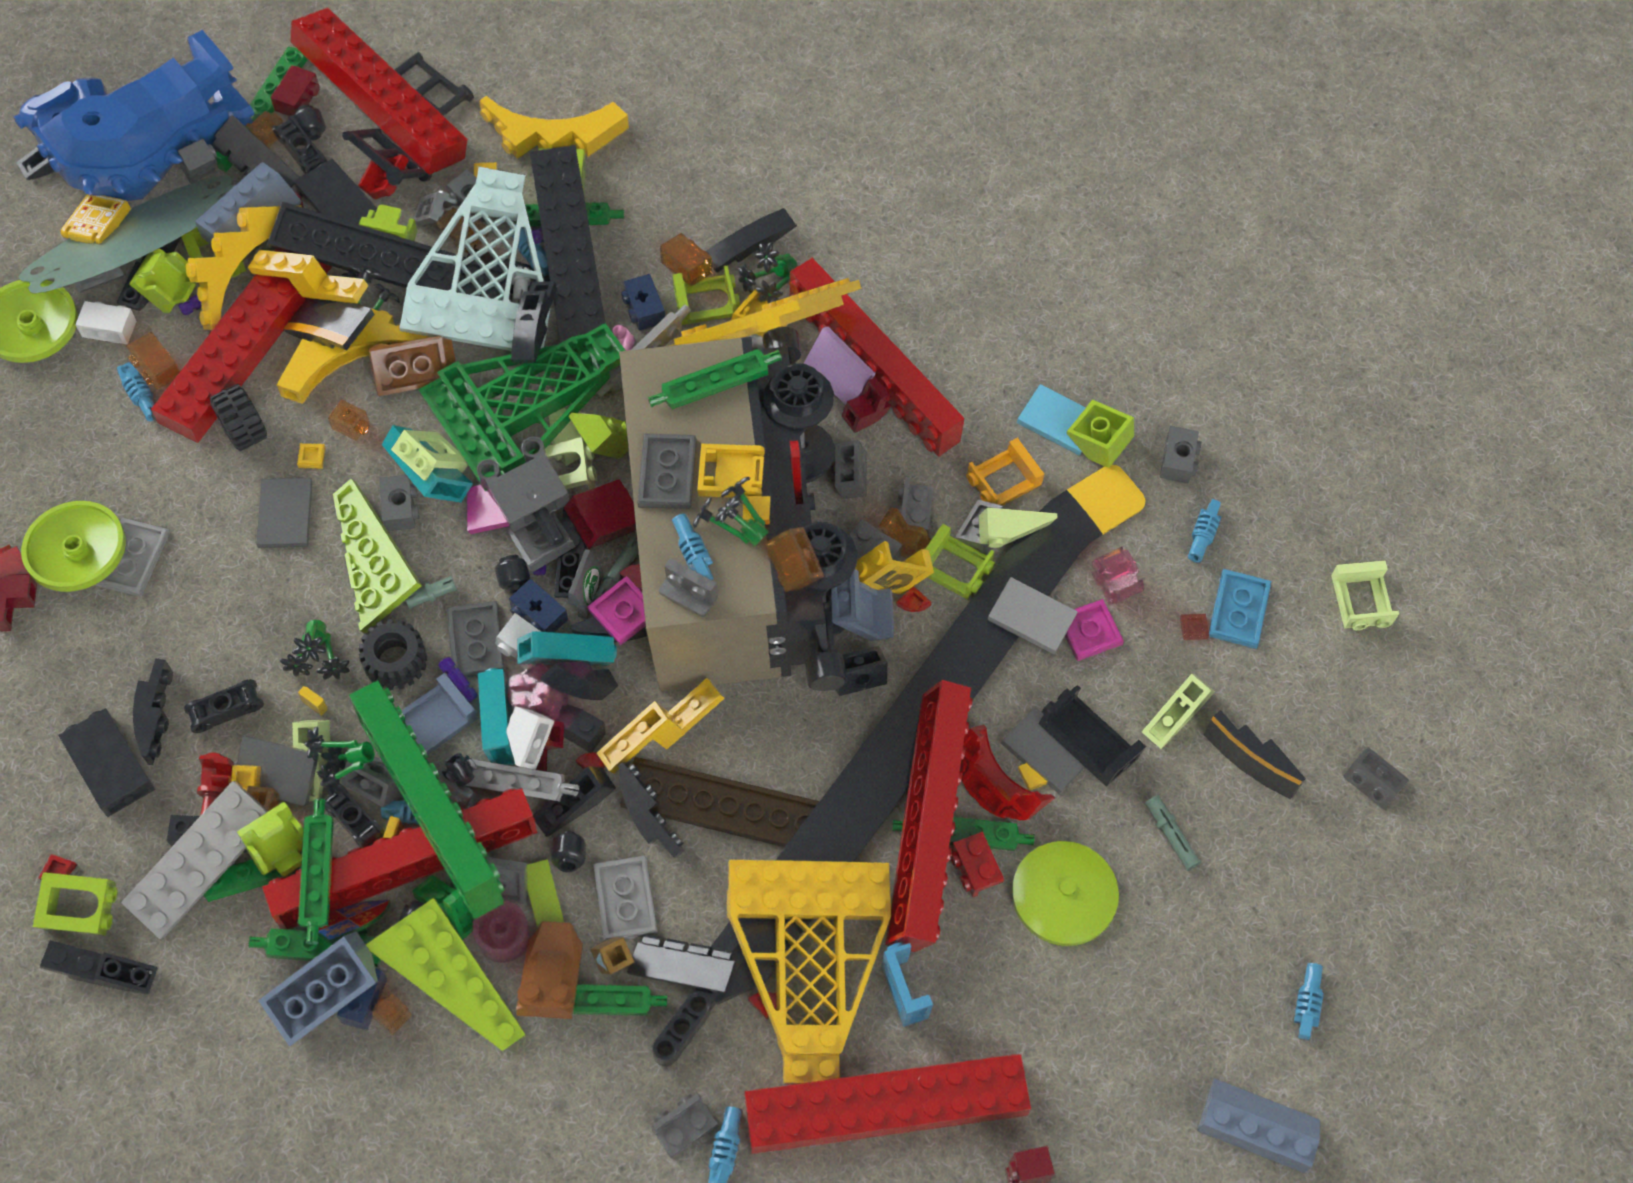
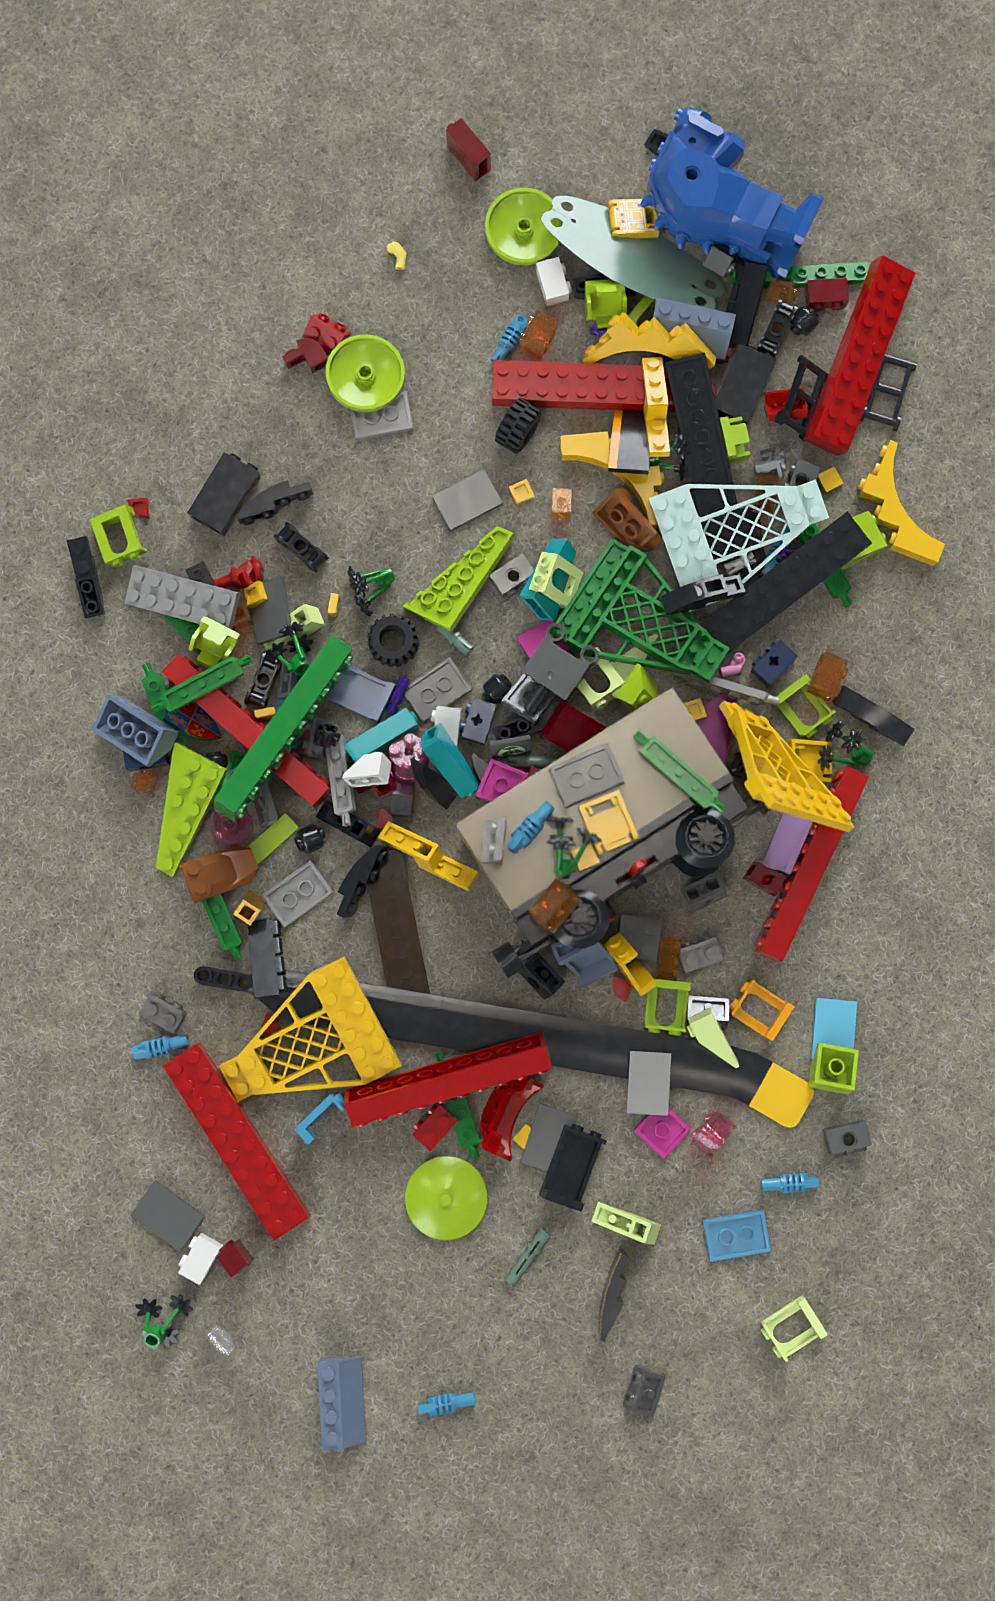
camera: 70 degrees right, 20 degrees up
(1194, 626) = (704, 1207): clear red tile -> none

